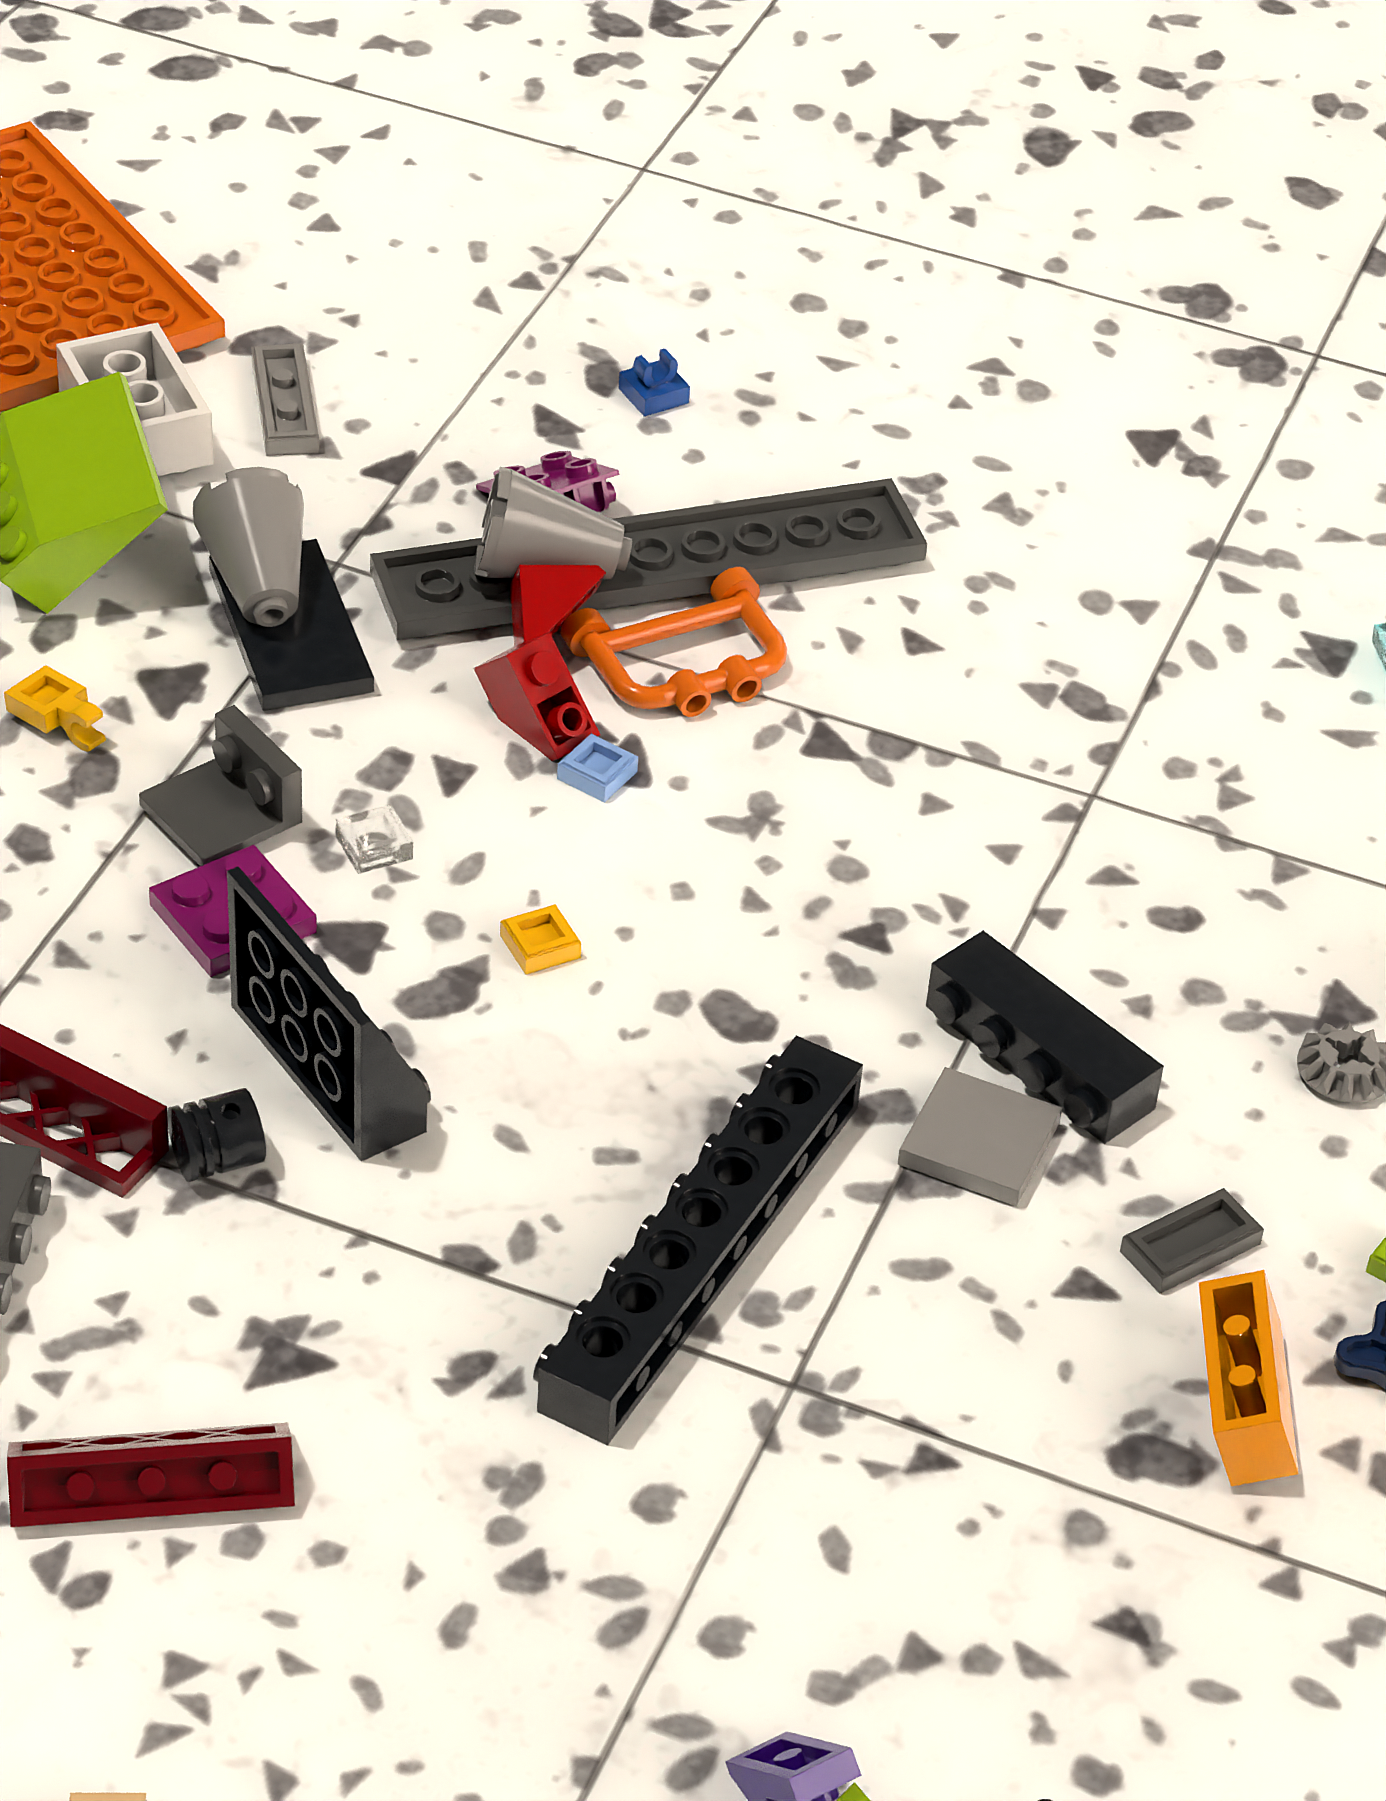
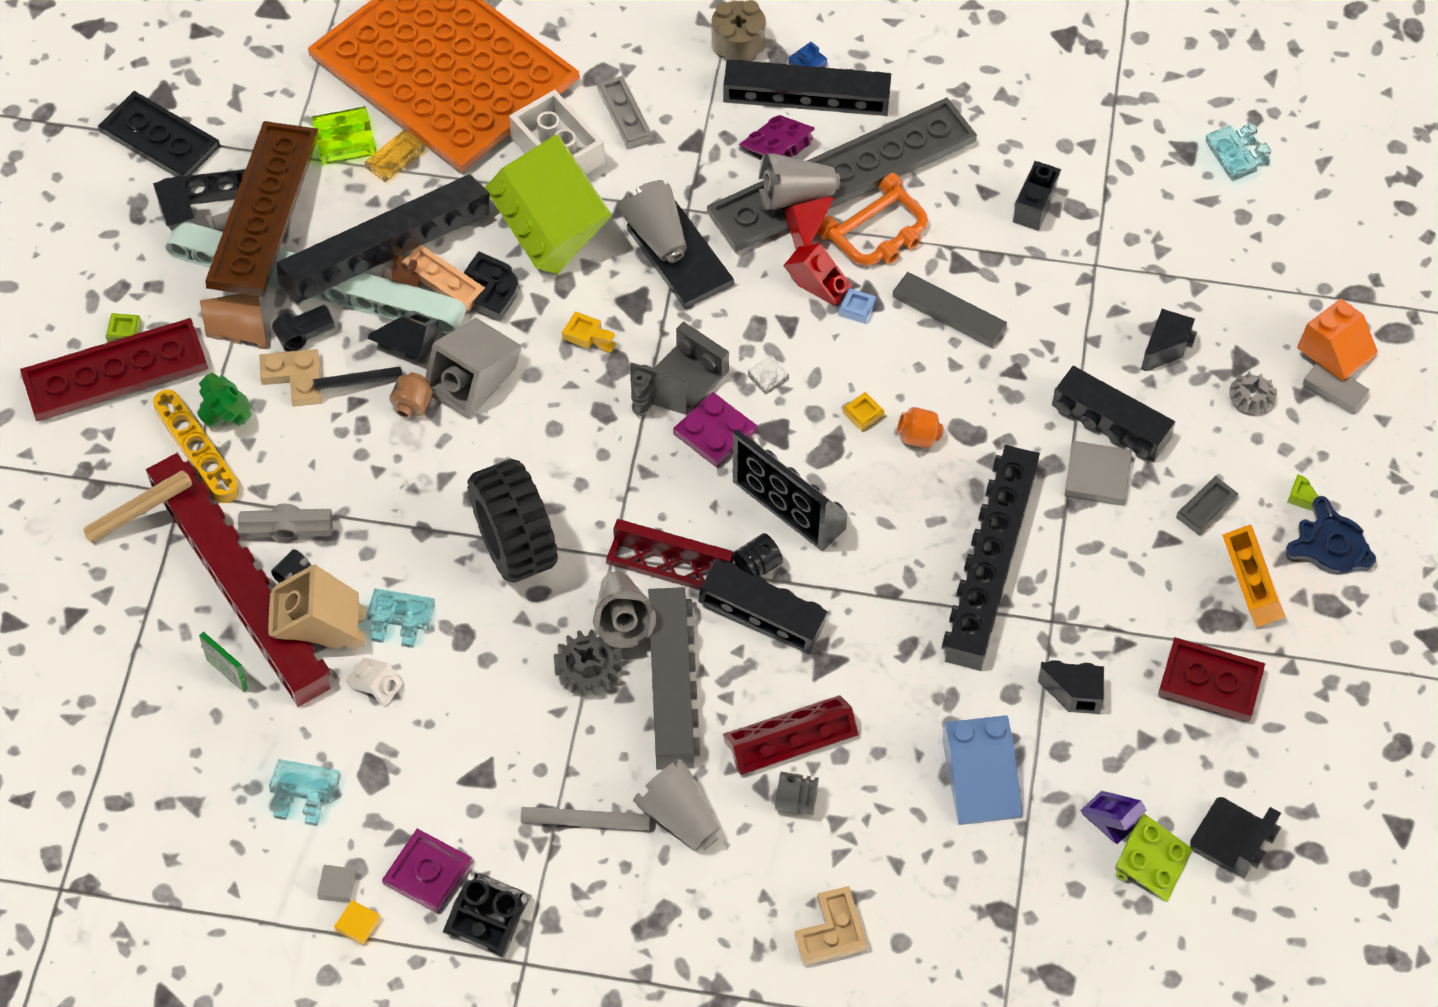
camera: 10 degrees left, 15 degrees up
(110, 1583) = (796, 793): none -> dark grey piece
(135, 808) = (656, 388): none -> dark grey hinge
(189, 1221) = (763, 606): none -> black brick
(533, 1627) = (982, 769): none -> medium blue slope
(539, 315) = (738, 30): none -> dark tan brick
(634, 419) = (806, 87): none -> black brick
(638, 981) = (919, 427): none -> orange head
(777, 807) = (949, 309): none -> dark grey tile
(793, 1507) = (1074, 686): none -> black slope
(1007, 655) = (1036, 195): none -> black slope
(1100, 1561) = (1211, 679): none -> dark red plate
(1196, 935) = (1169, 339): none -> black slope

